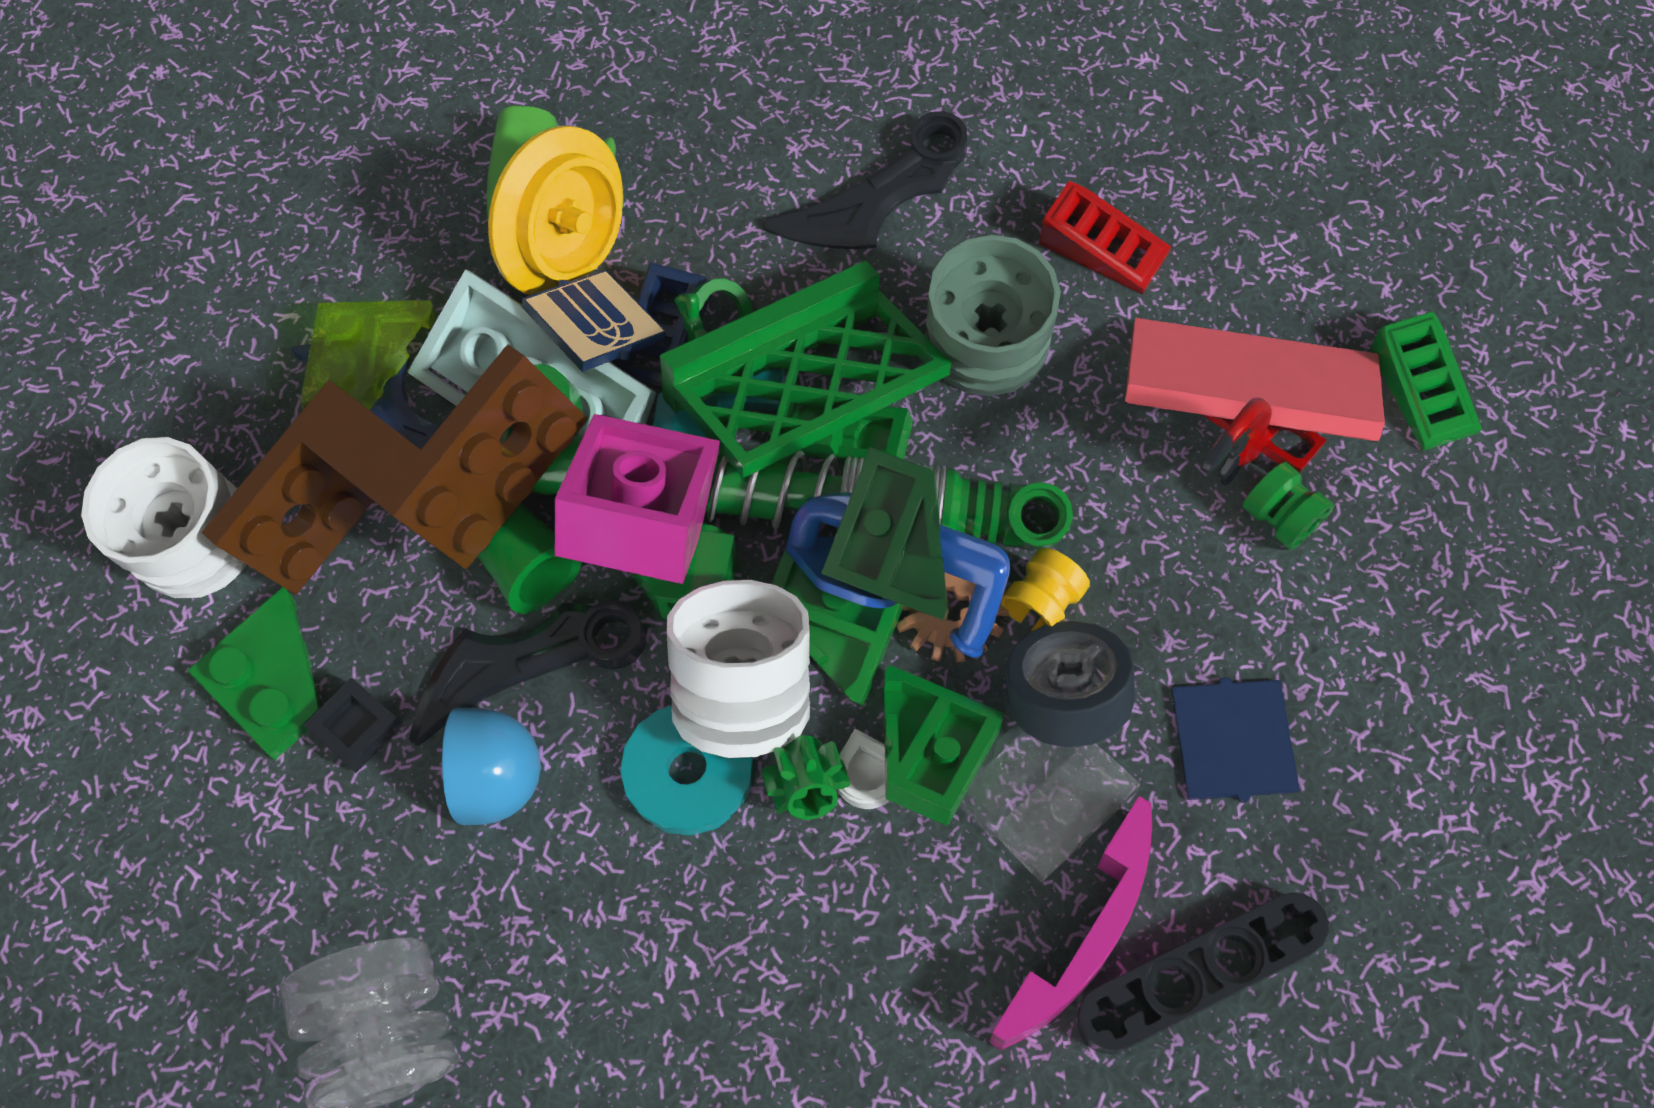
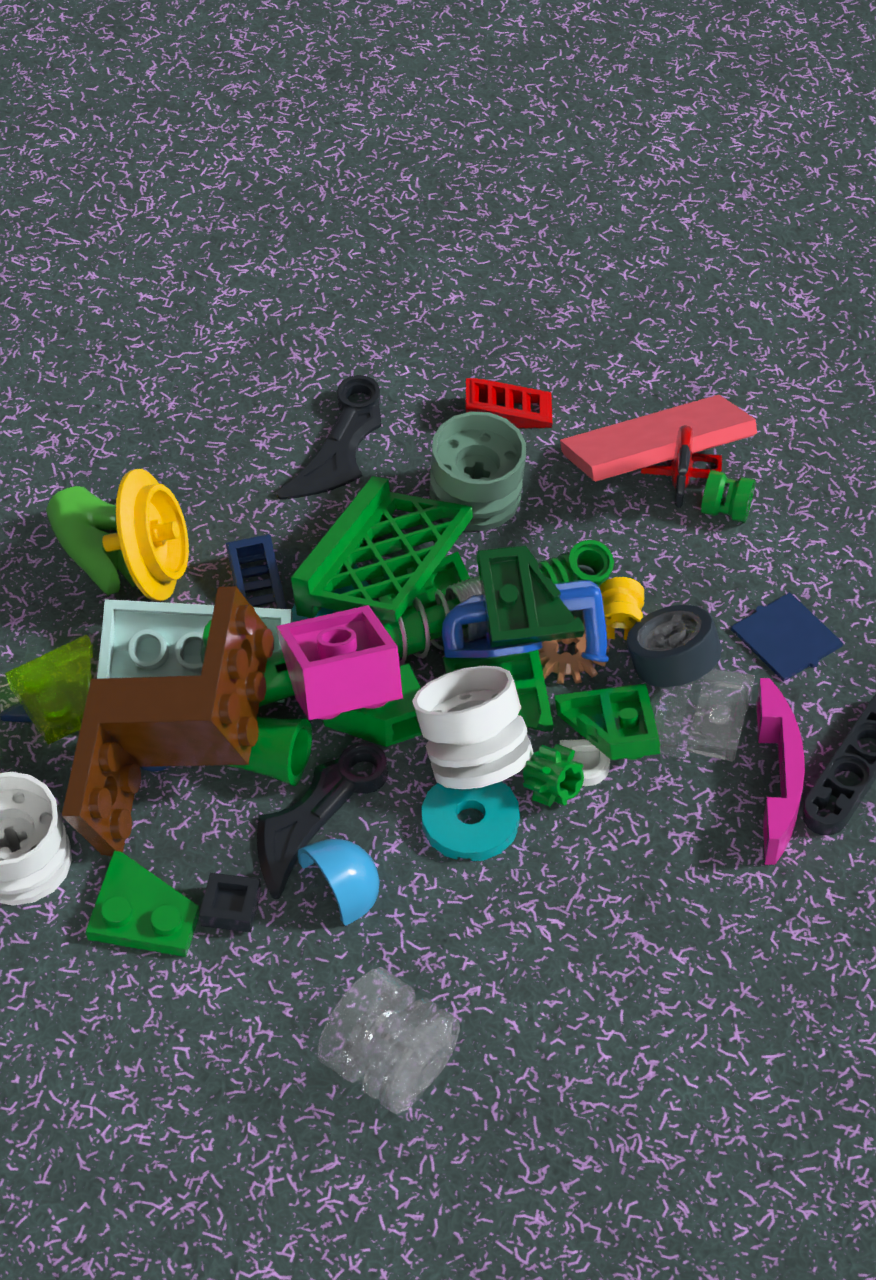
camera: 35 degrees left, 15 degrees down
(593, 320) = (200, 583): piece -> none
(691, 303) = (276, 554): green piece -> none
(1436, 351) = (738, 377): green slope -> none

